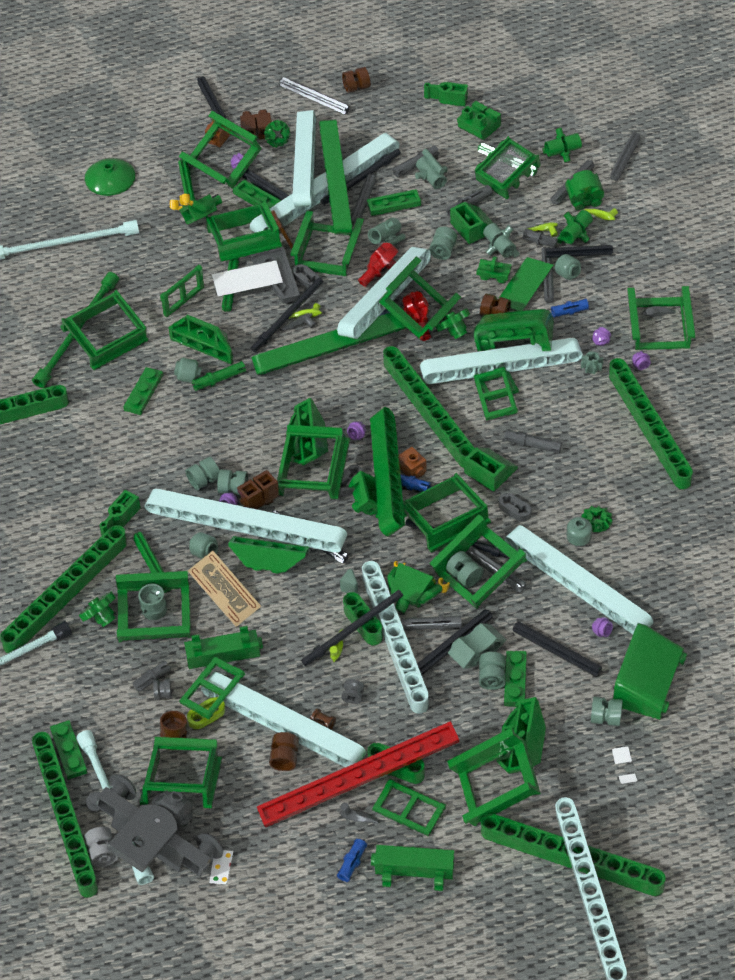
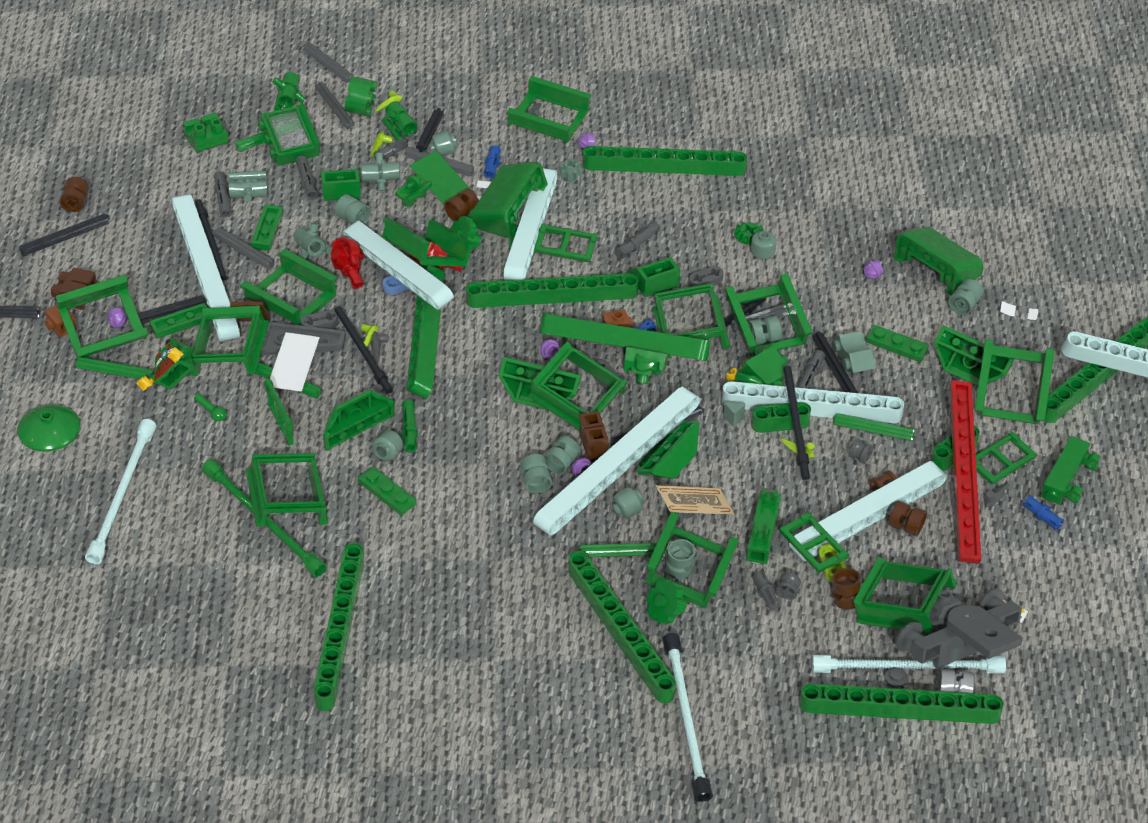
camera: 70 degrees left, 5 degrees down
(68, 750) = (798, 679): green plate -> none
(121, 511) = (545, 553): green piece -> none
(174, 260) = (217, 413): none -> green bar
(269, 135) = (103, 271): green gear -> none
(304, 158) = (163, 263): light aqua beam -> none
(335, 177) = (213, 247): green beam -> none
(393, 693) = (874, 427): none -> green axle
(447, 93) = (149, 140): green piece -> none
(492, 670) = (887, 351): sand green wheel -> none
(557, 649) = (879, 306): black axle -> none
(578, 580) = (818, 264): light aqua beam -> none
(601, 336) = (543, 153): medium lavender plate -> none

